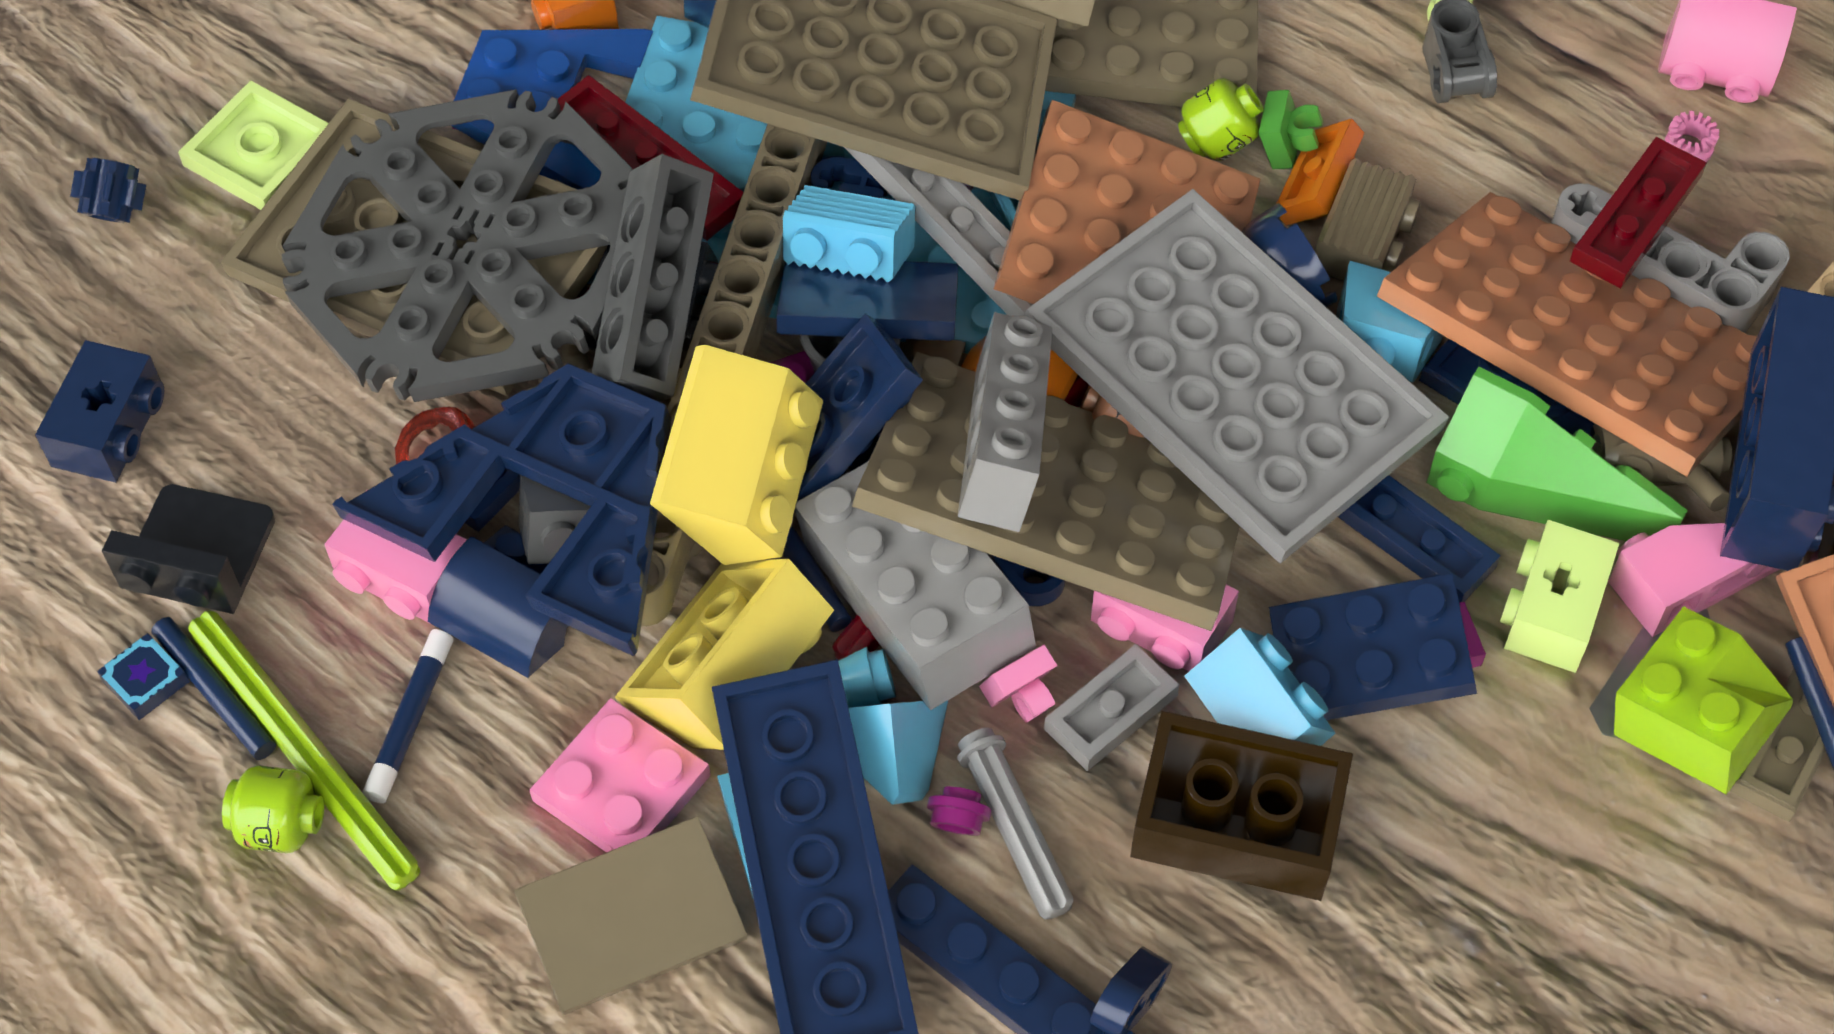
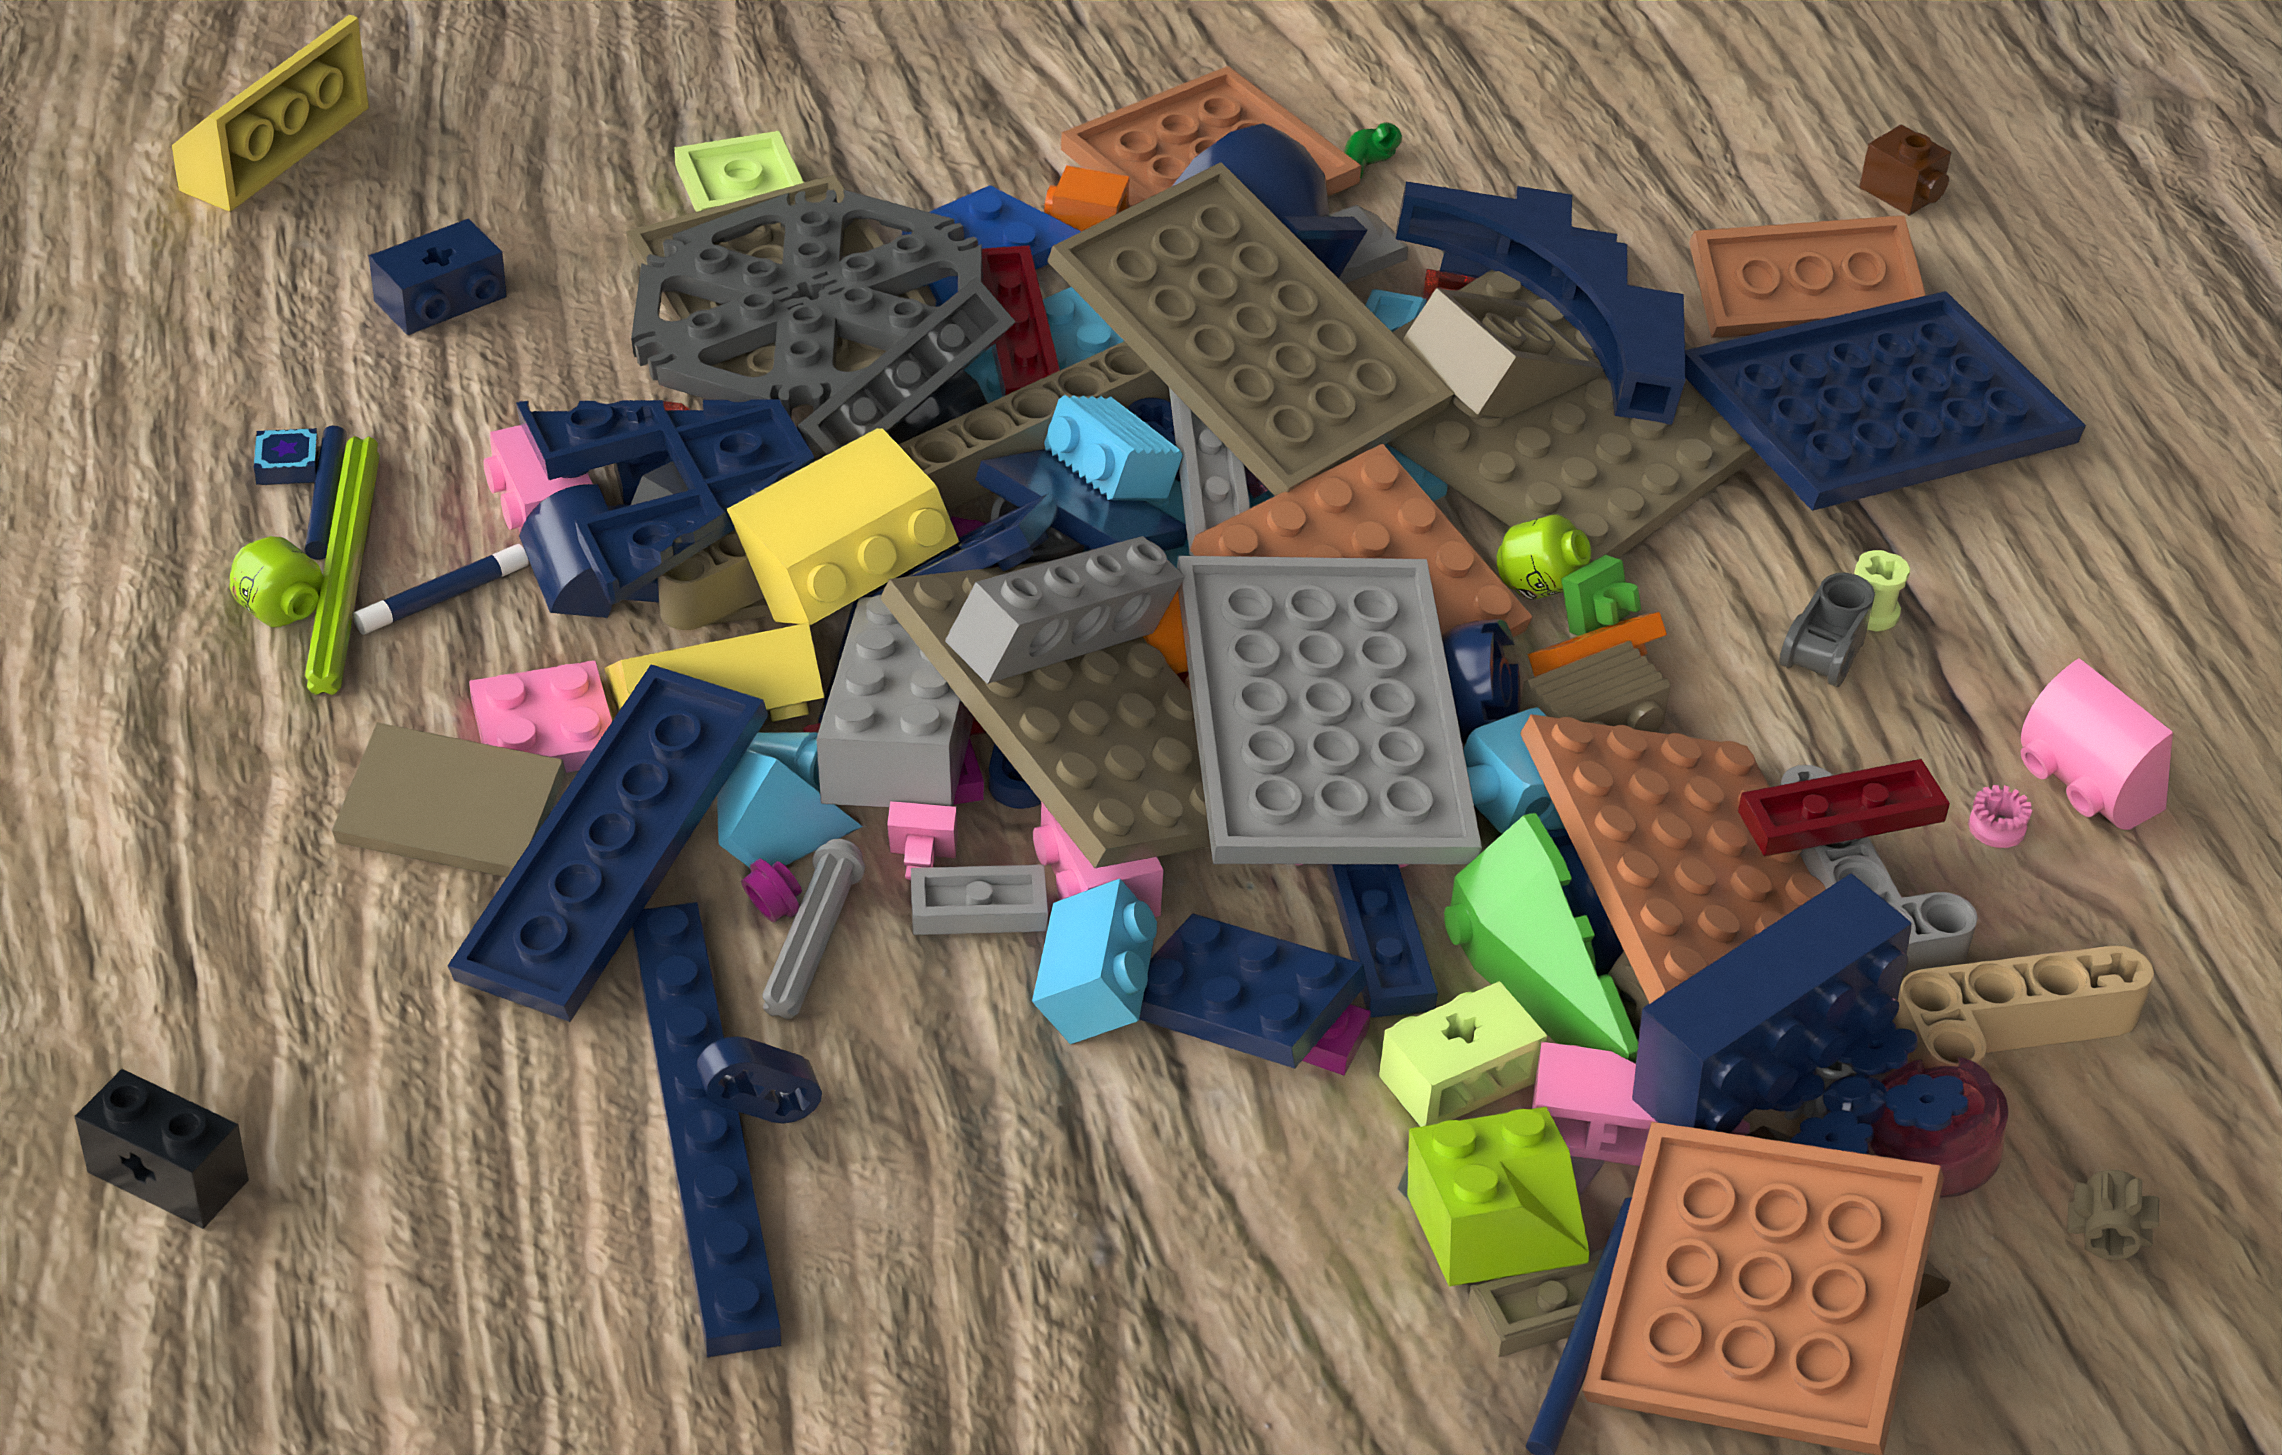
camera: 35 degrees right, 15 degrees down
(108, 190) = (596, 144): dark blue gear -> none
(192, 548) = (404, 399): black bracket -> none
(1241, 805) = (993, 1013): dark brown slope -> none

